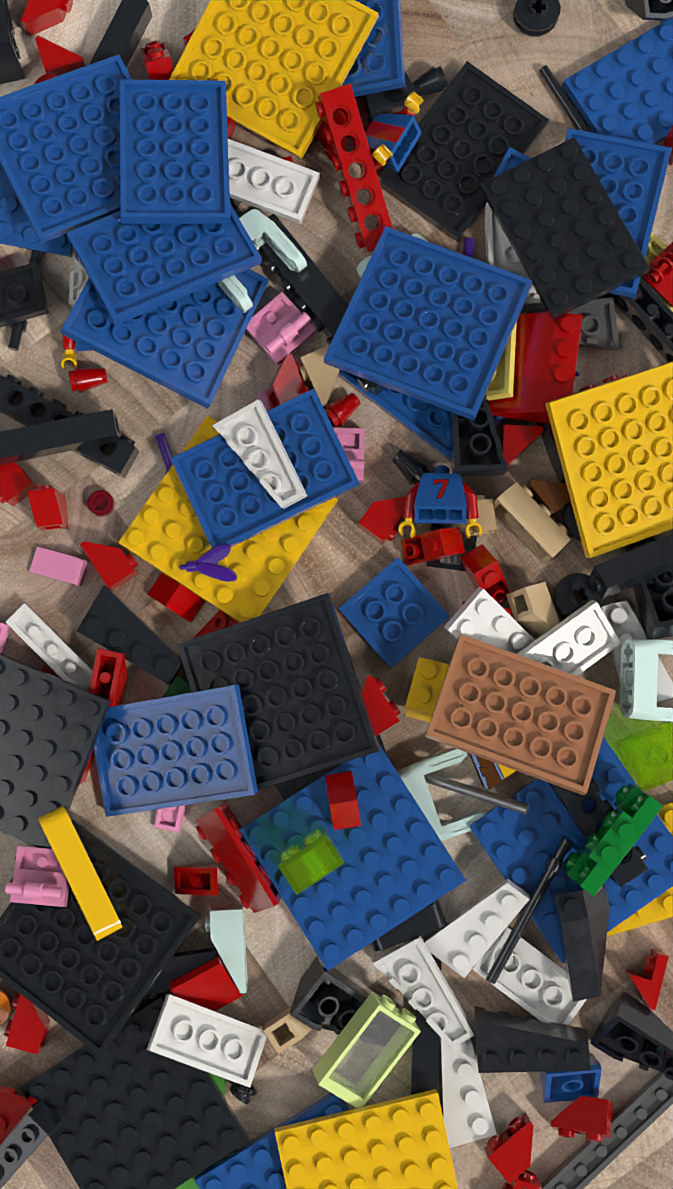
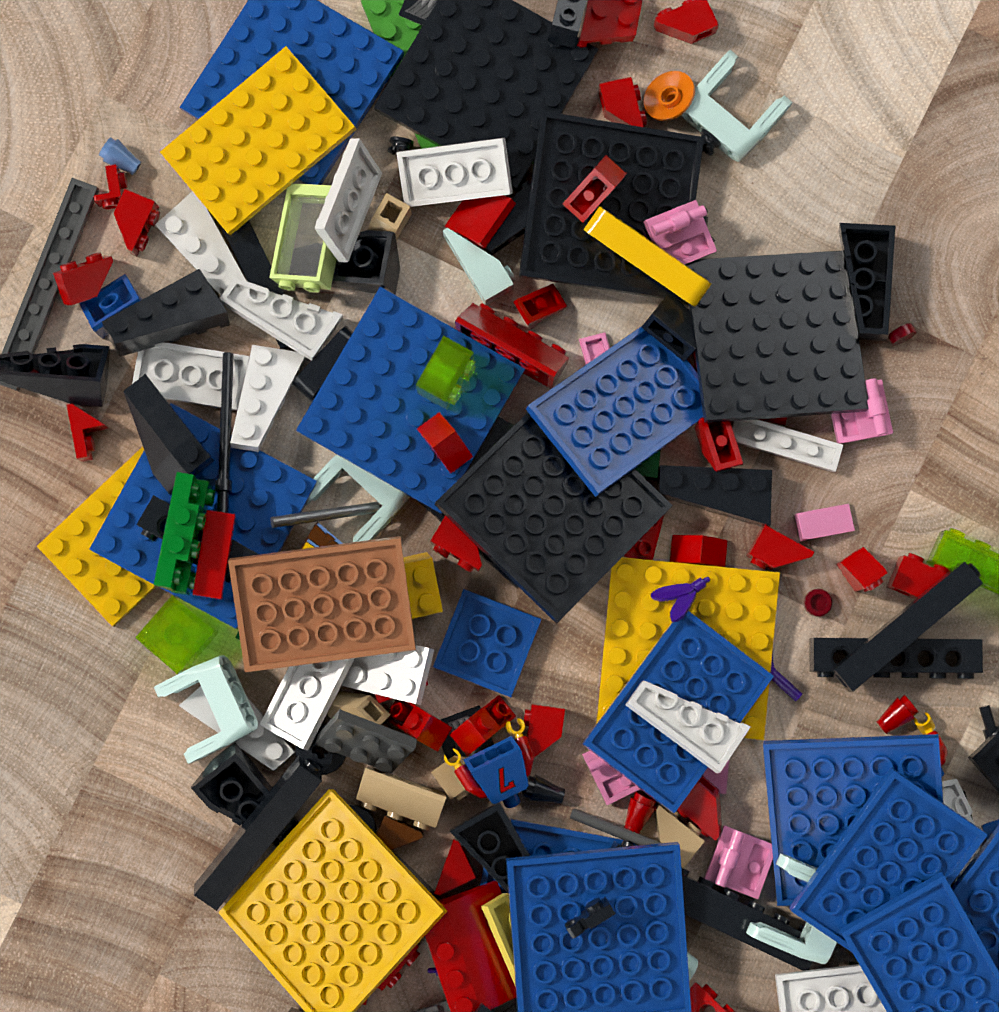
camera: 155 degrees right, 0 degrees up
(92, 799) = (672, 327): none -> black slope
(92, 959) = (594, 188): none -> red slope
(315, 1065) = (348, 200): none -> white plate
(368, 404) = (611, 828): none -> dark grey piece
(425, 336) = (594, 914): none -> black plate
(540, 581) = (365, 741): none -> dark grey plate
(593, 806) = (214, 554): none -> red tile

